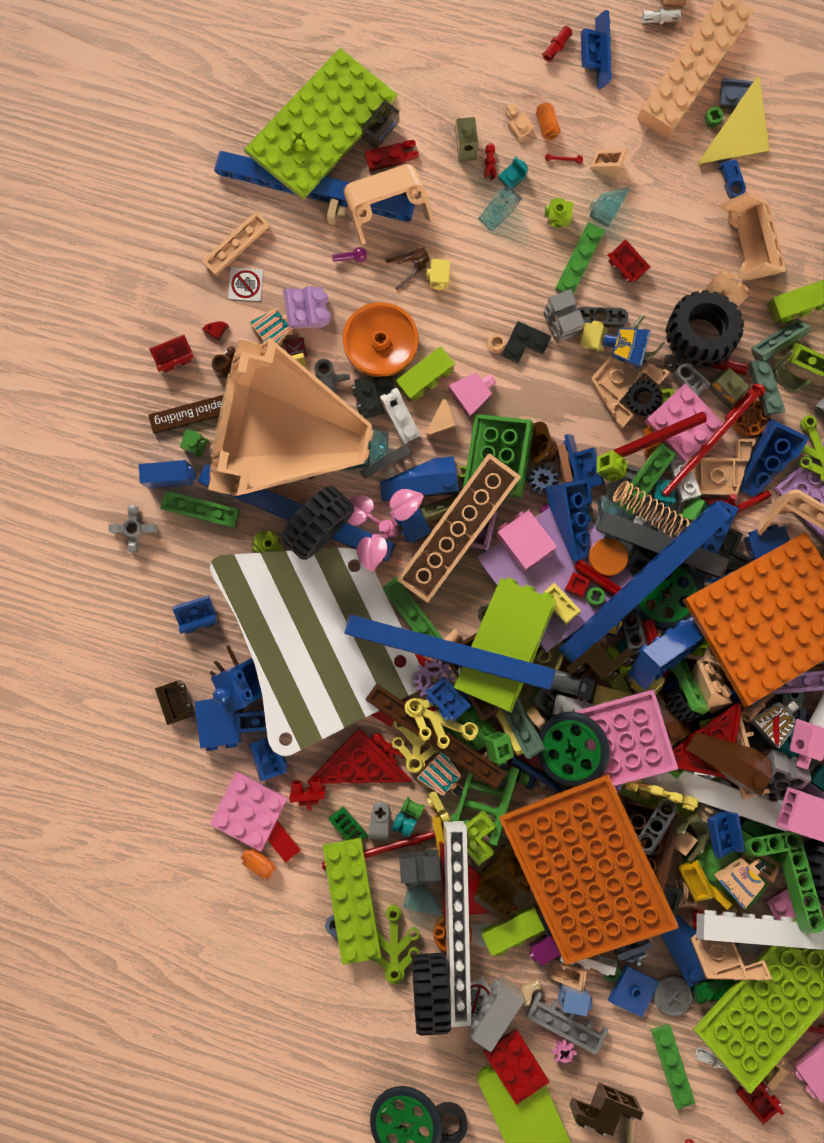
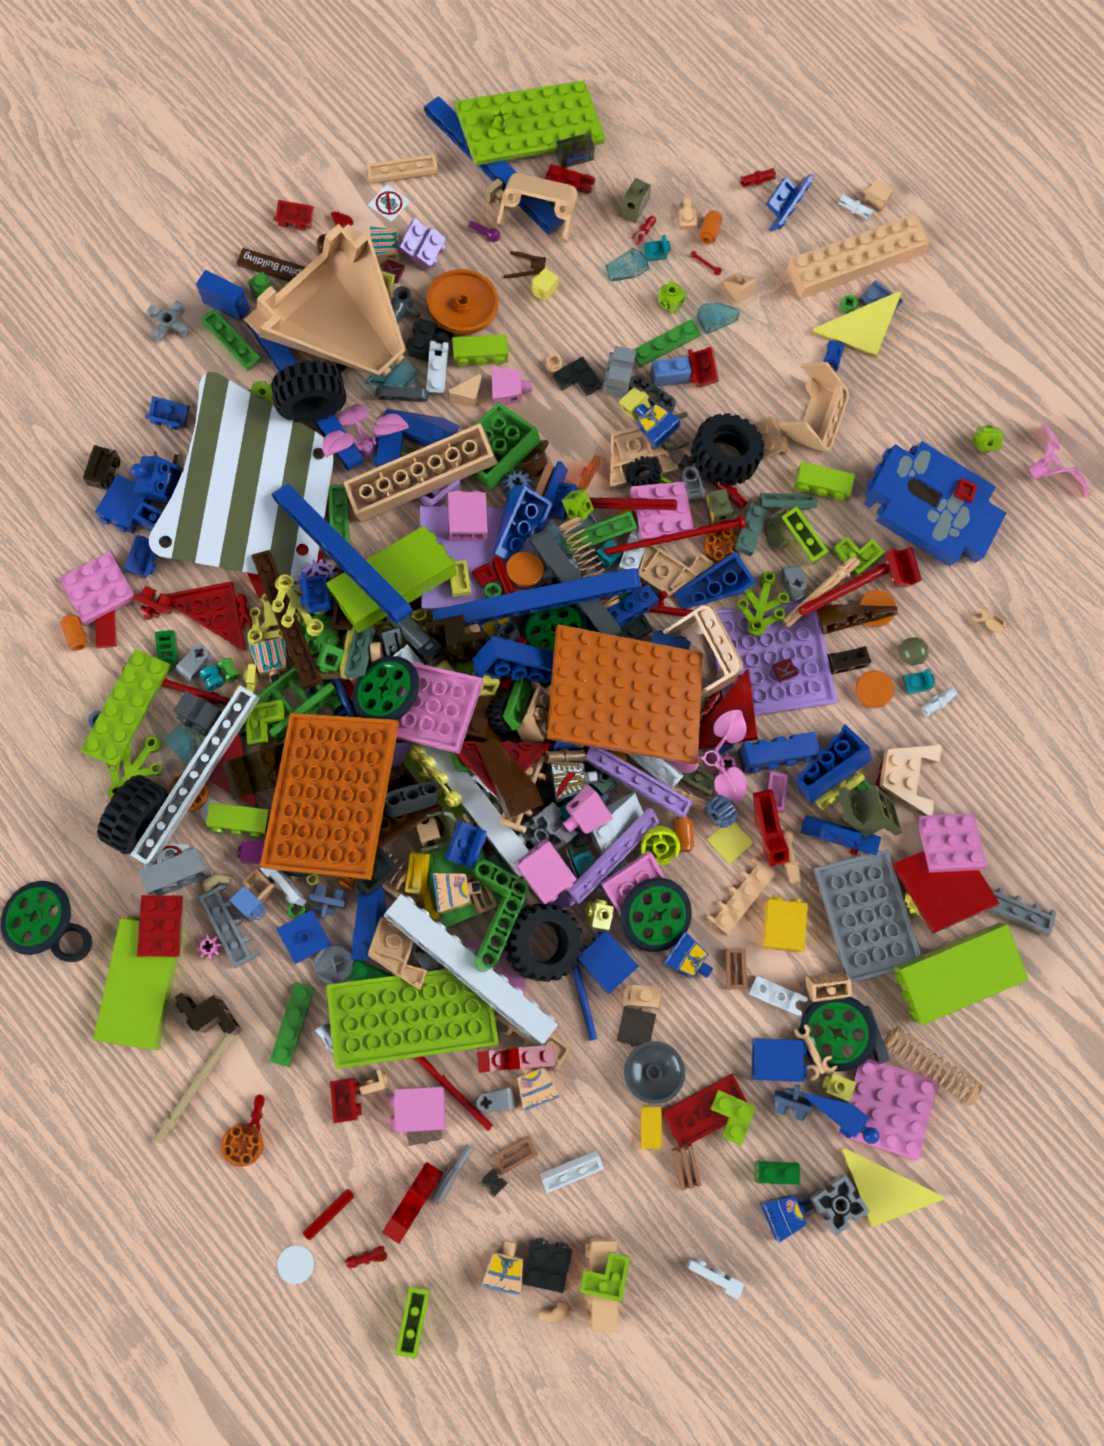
camera: 30 degrees right, 10 degrees down
(595, 428) = (588, 473): none -> clear orange plate
(604, 285) = (670, 371): none -> medium blue brick

